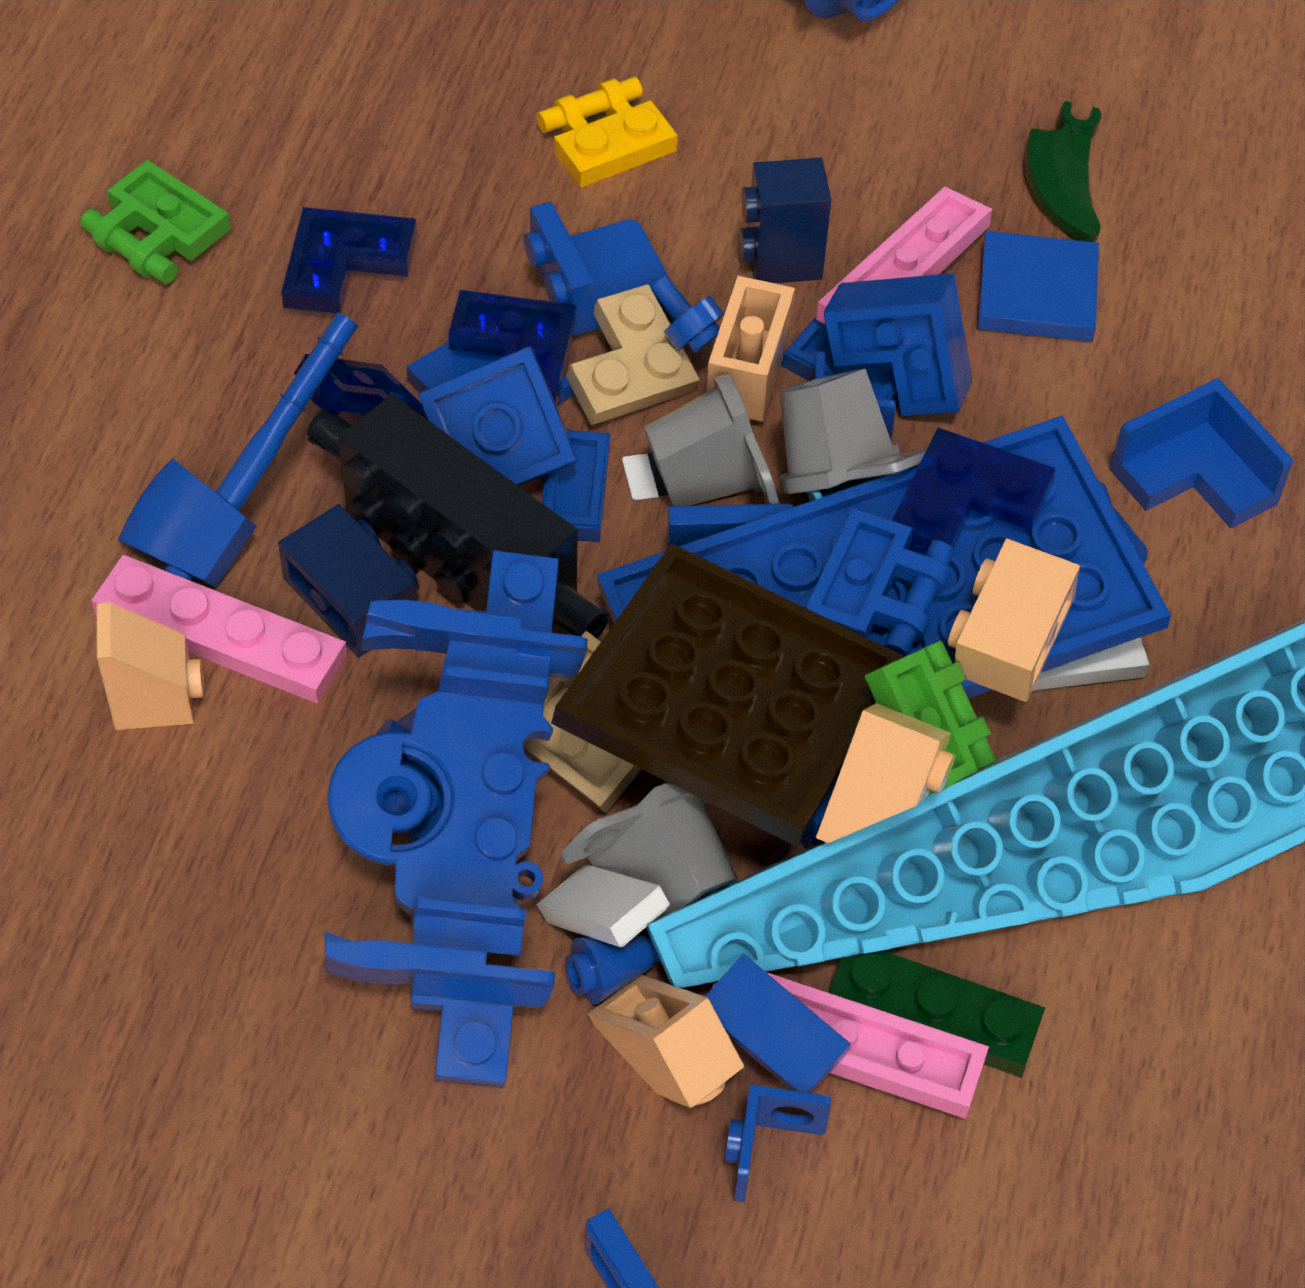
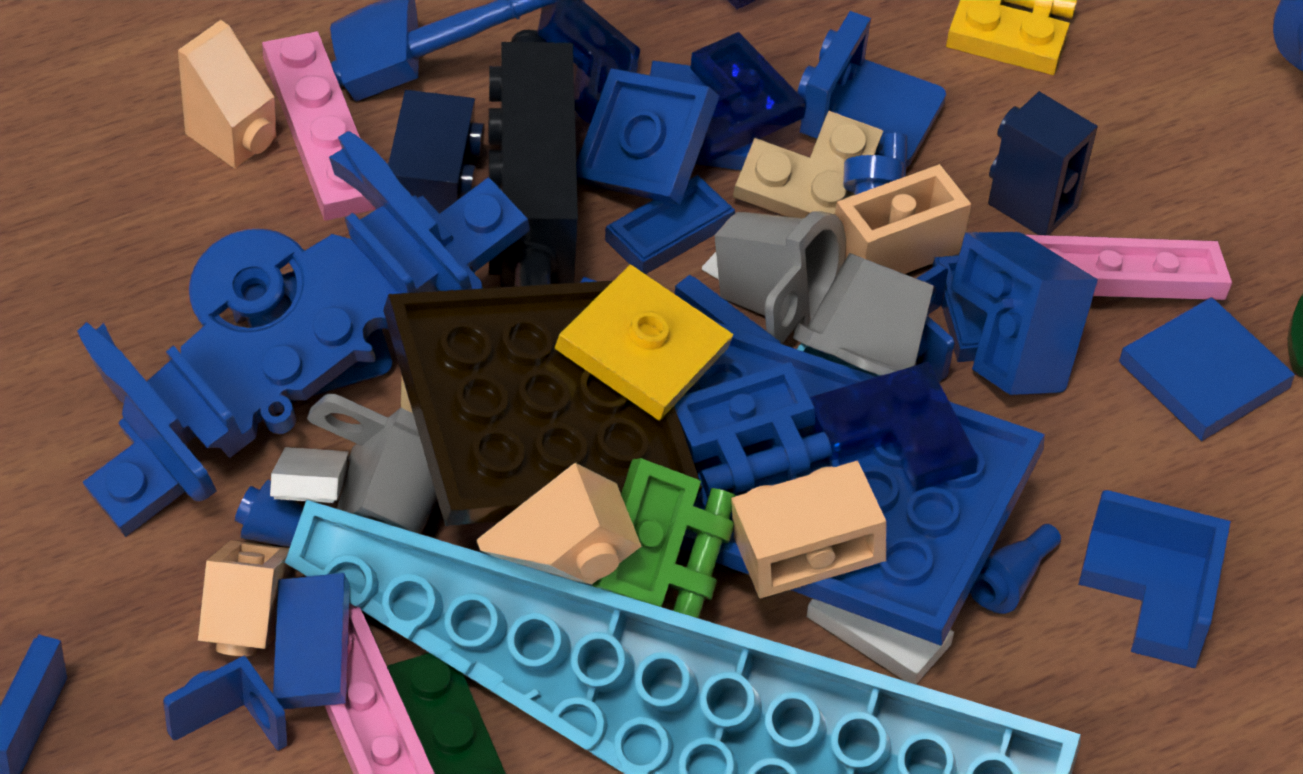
camera: 45 degrees right, 5 degrees down
(746, 581) = (644, 342): none -> yellow plate

